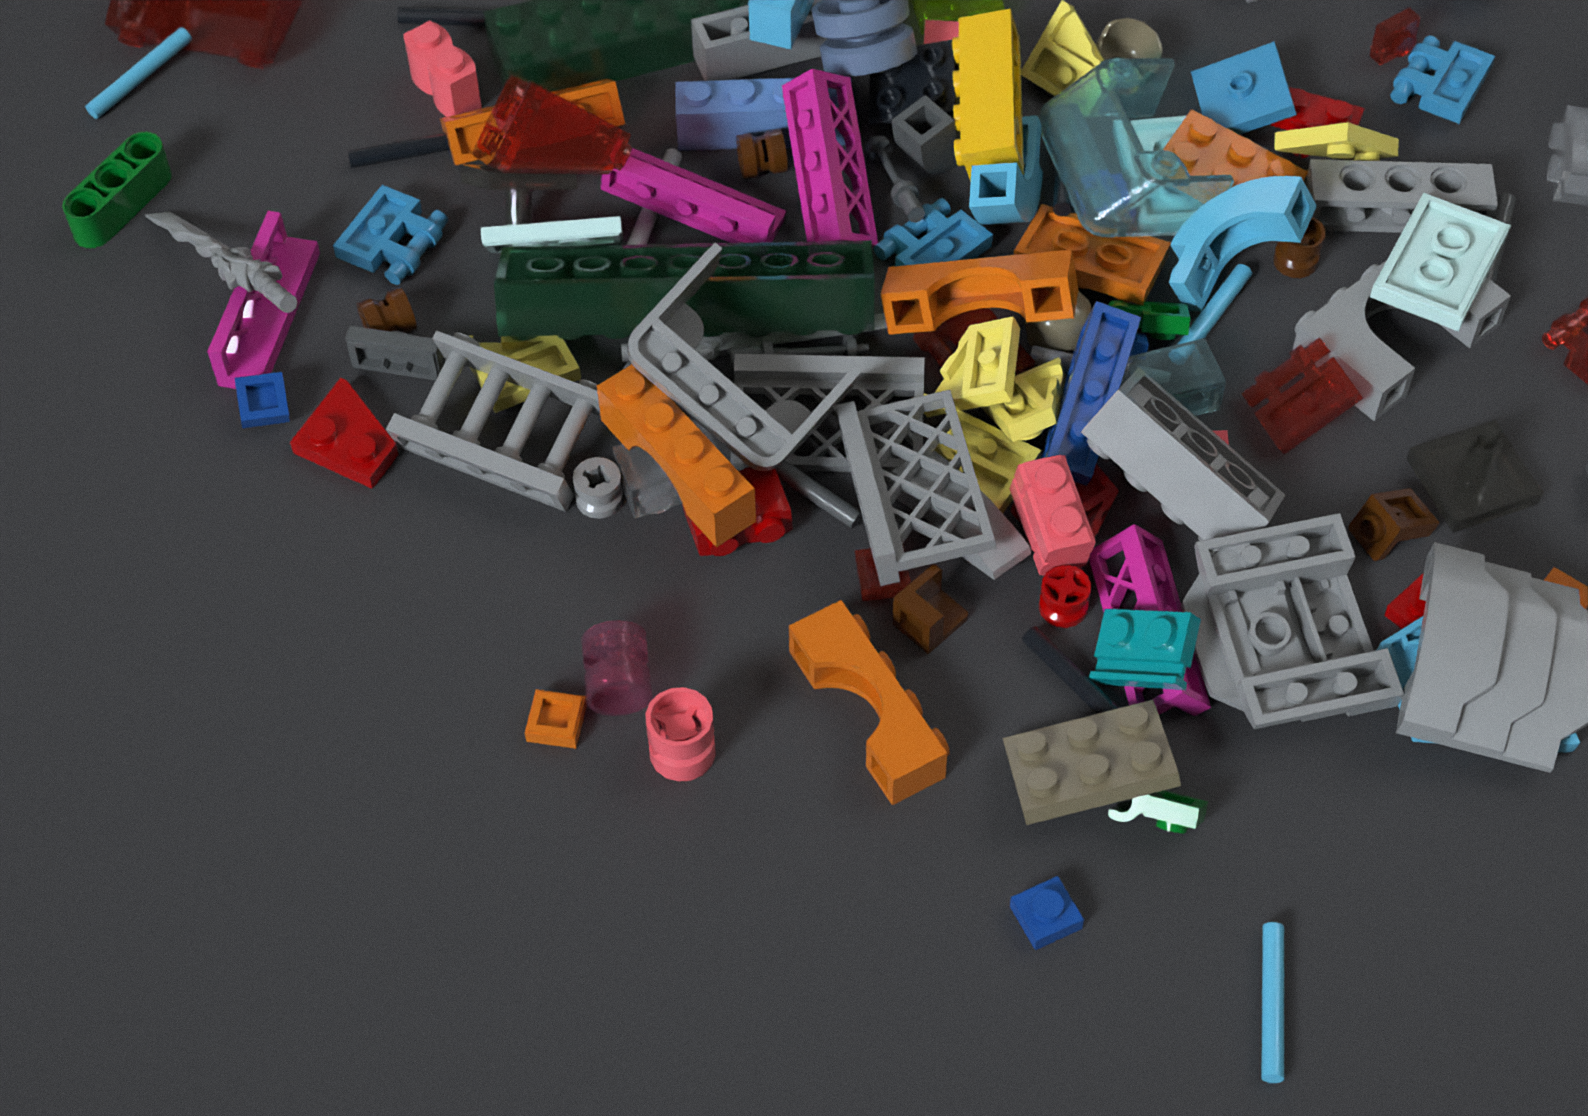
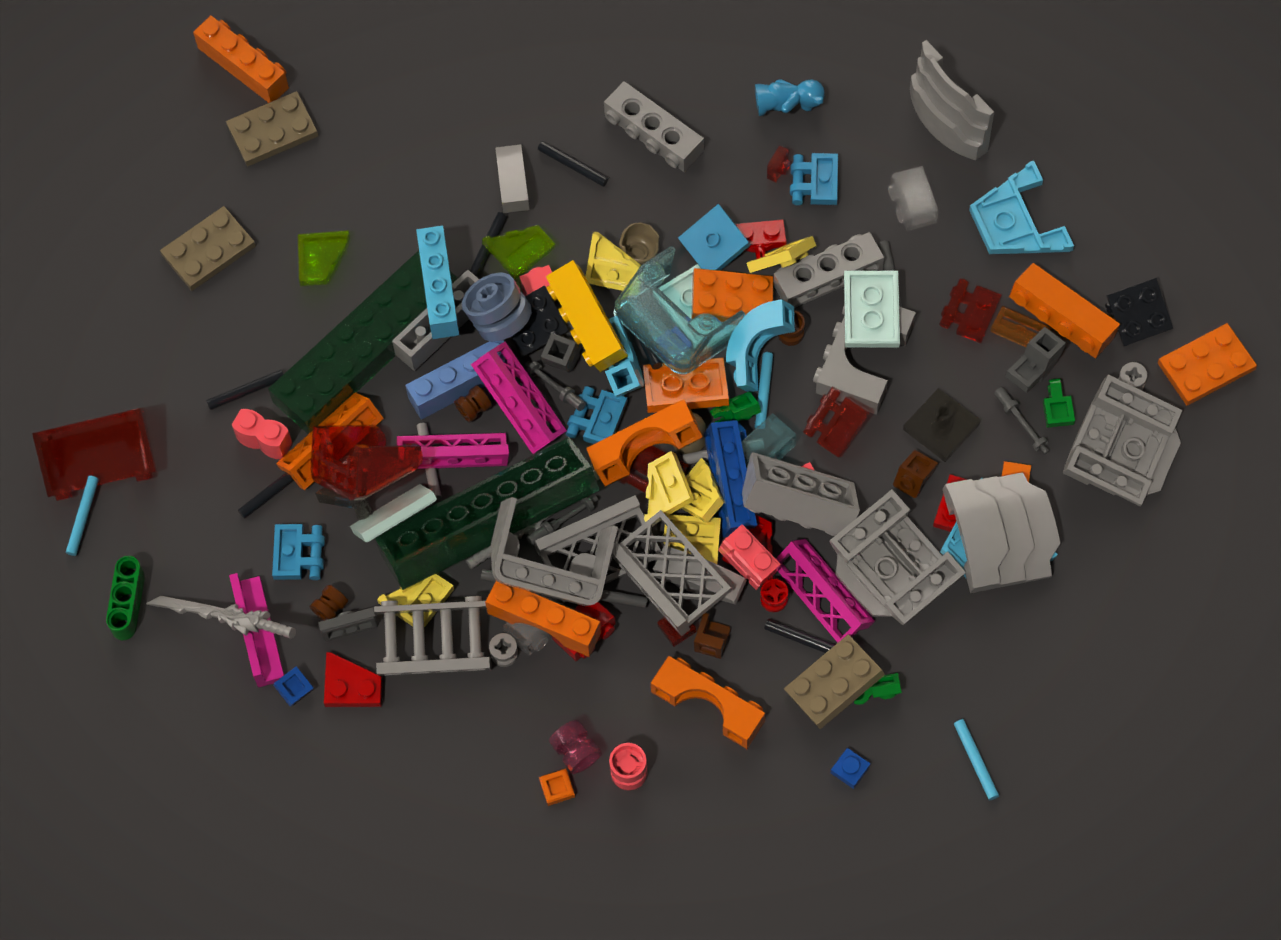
camera: 25 degrees left, 10 degrees up
(1145, 648) = (830, 608): teal plate -> none

